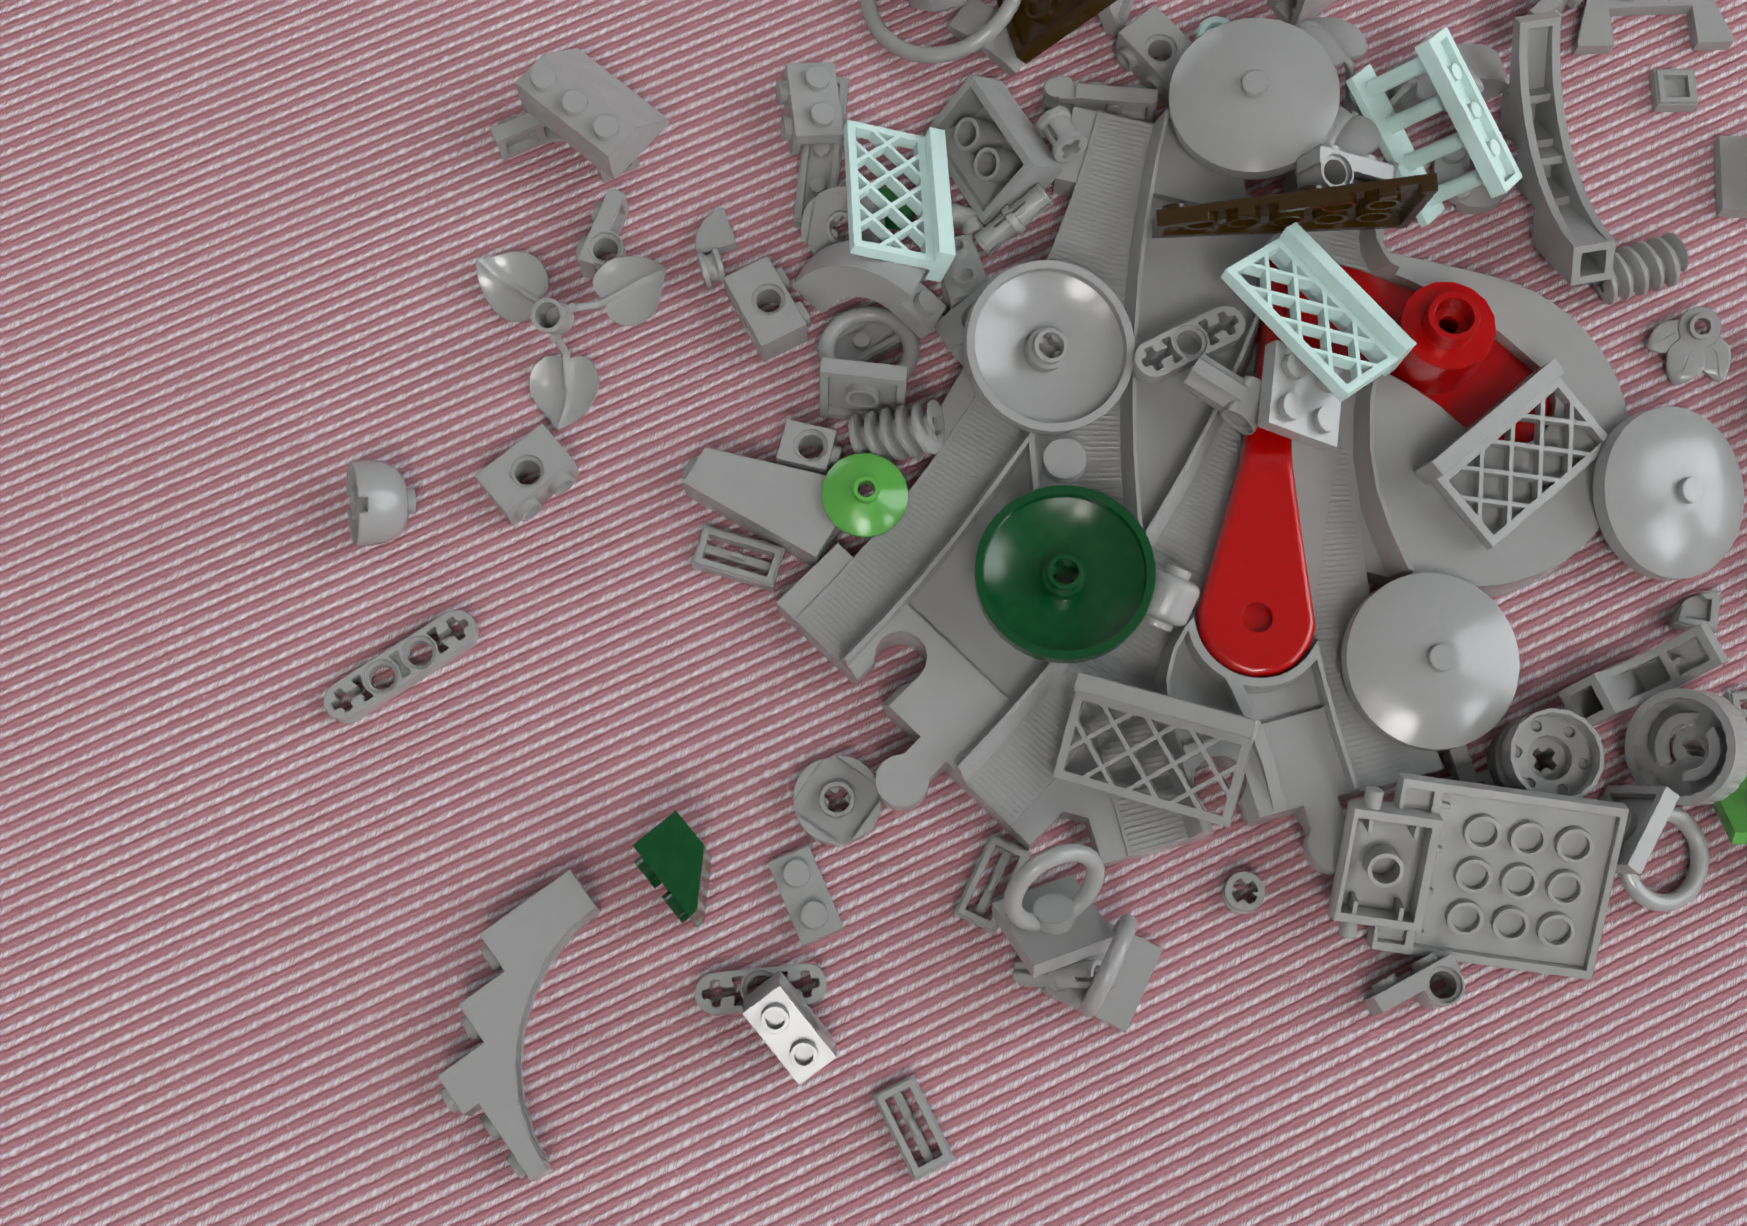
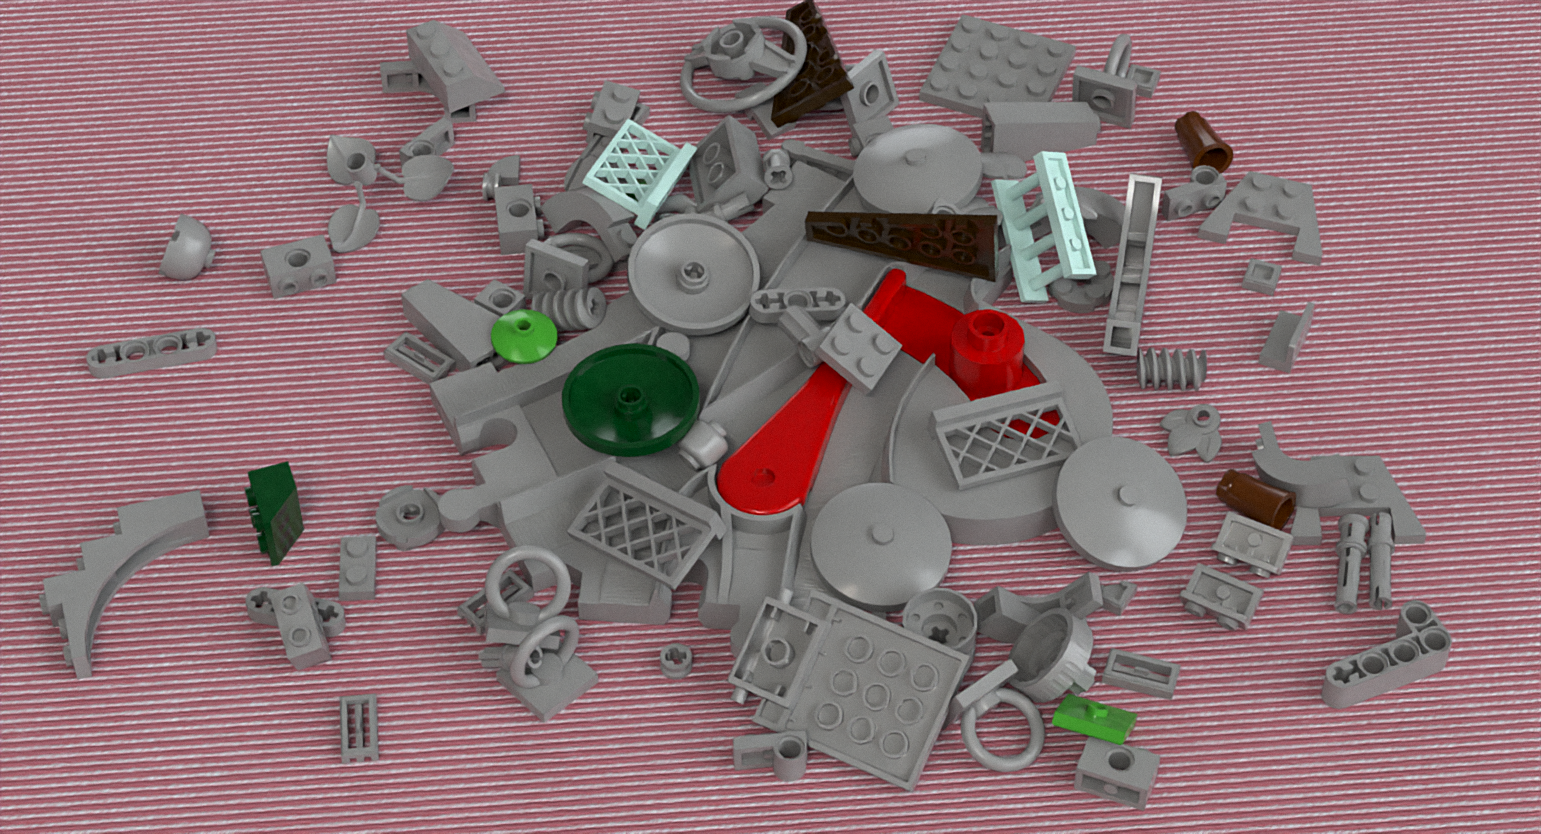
camera: 20 degrees right, 25 degrees down
(1331, 297) = (909, 294): light aqua fence -> none

